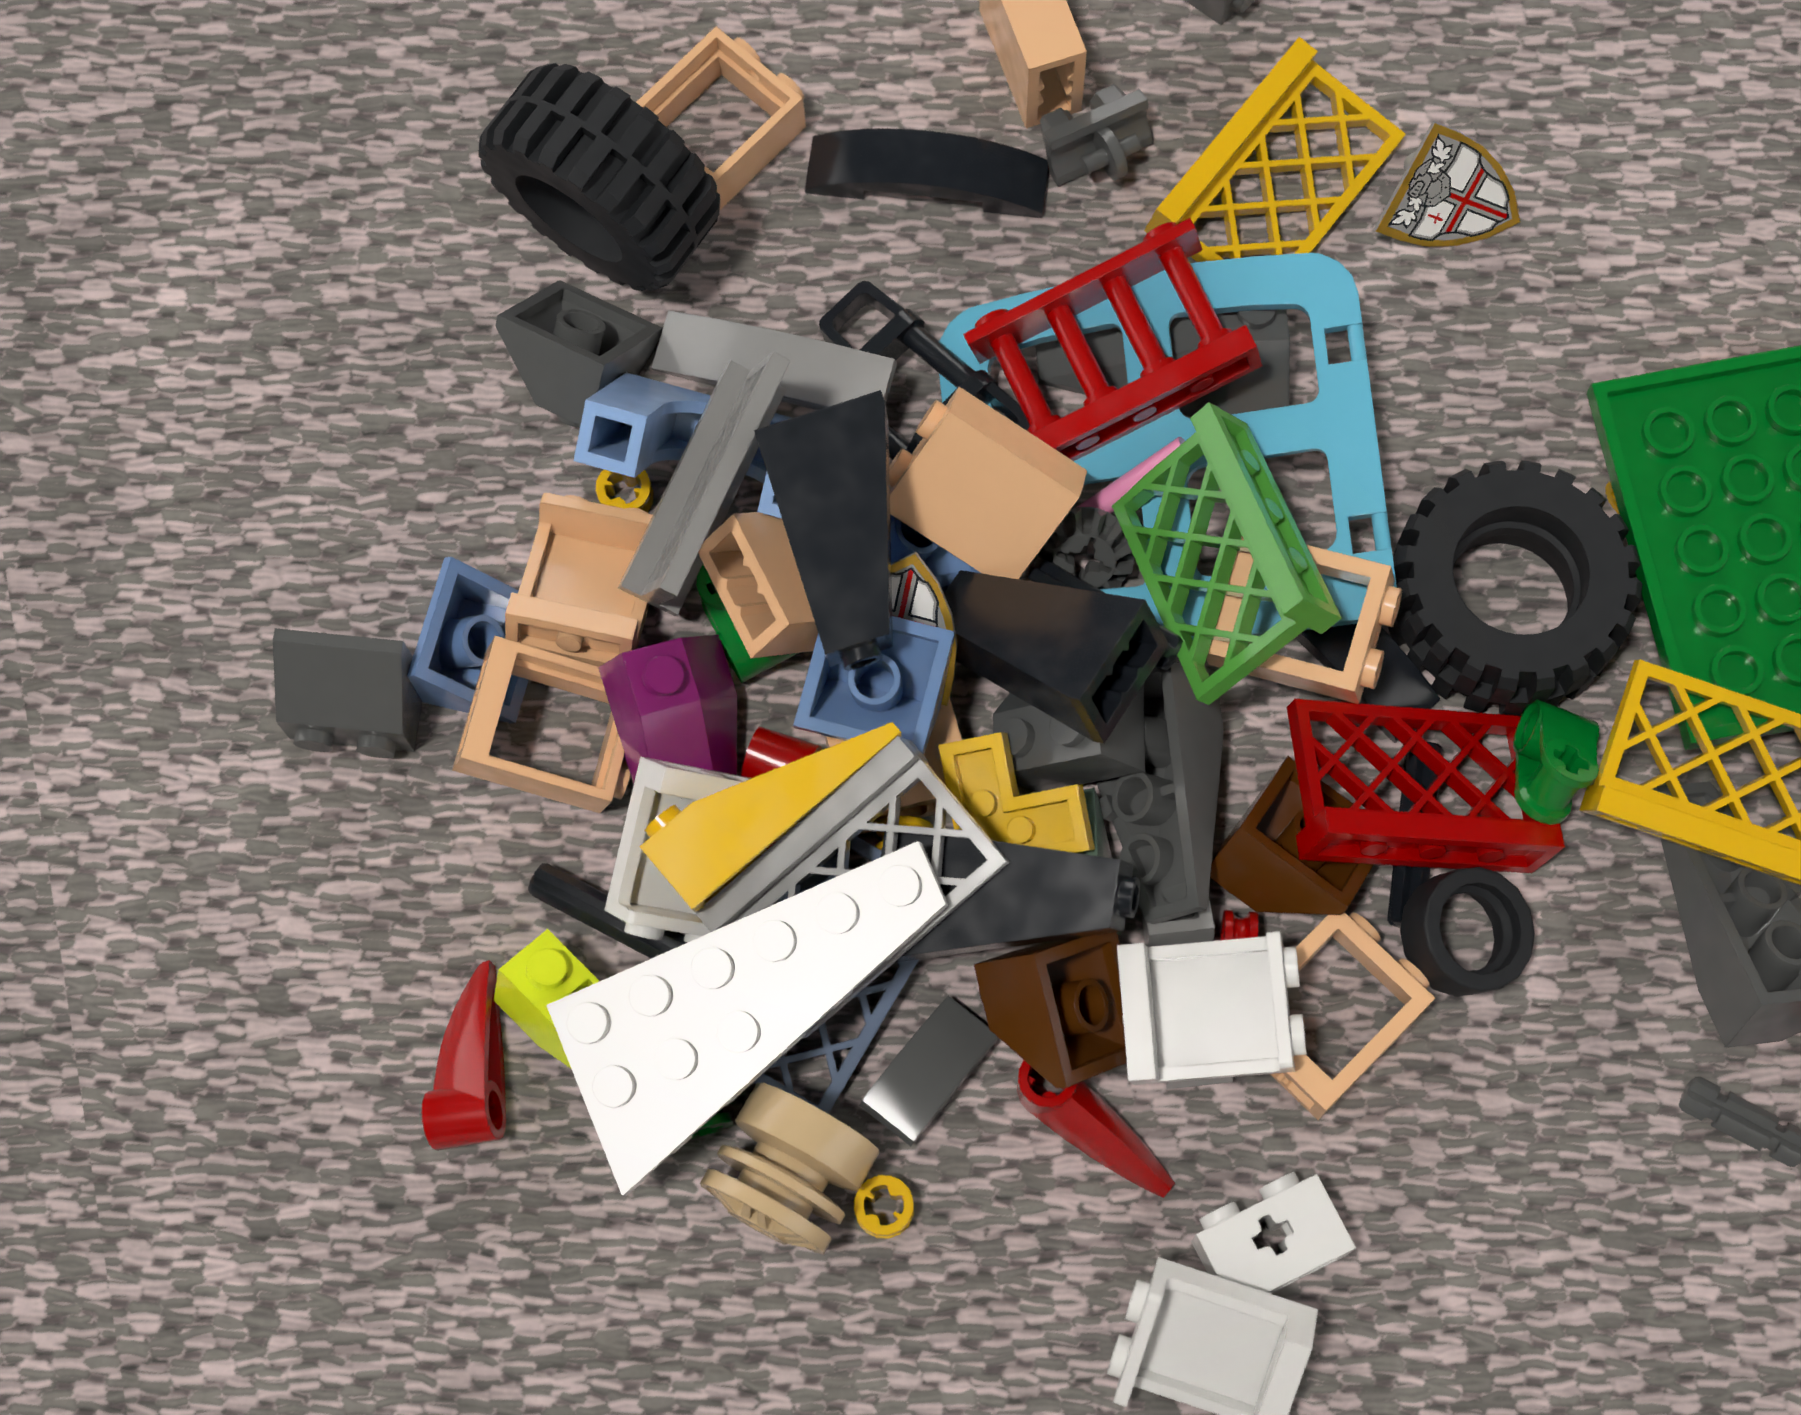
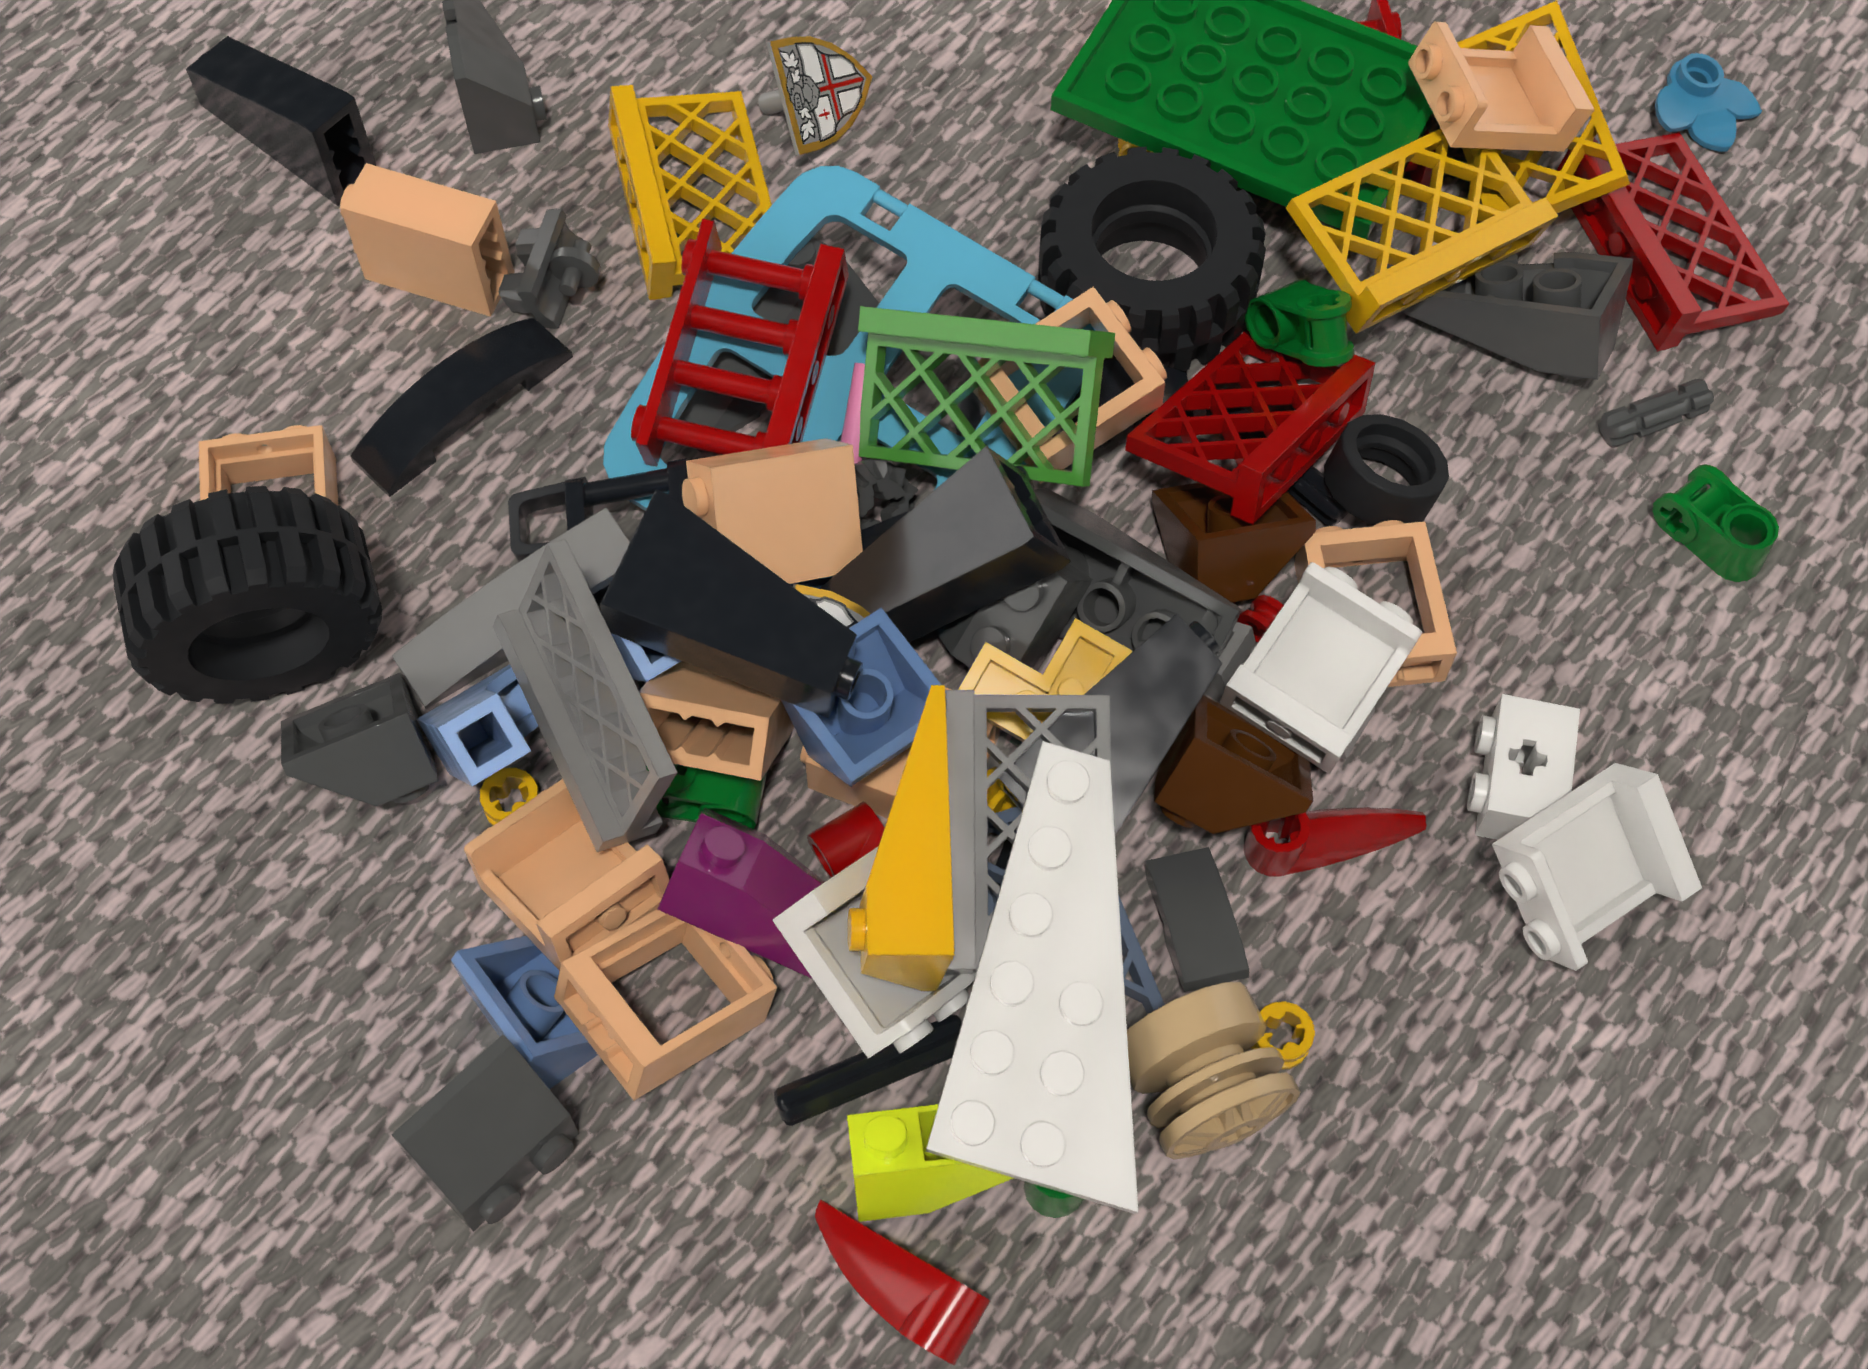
camera: 55 degrees left, 10 degrees down
(1665, 1234) = (1717, 523): none -> green piece

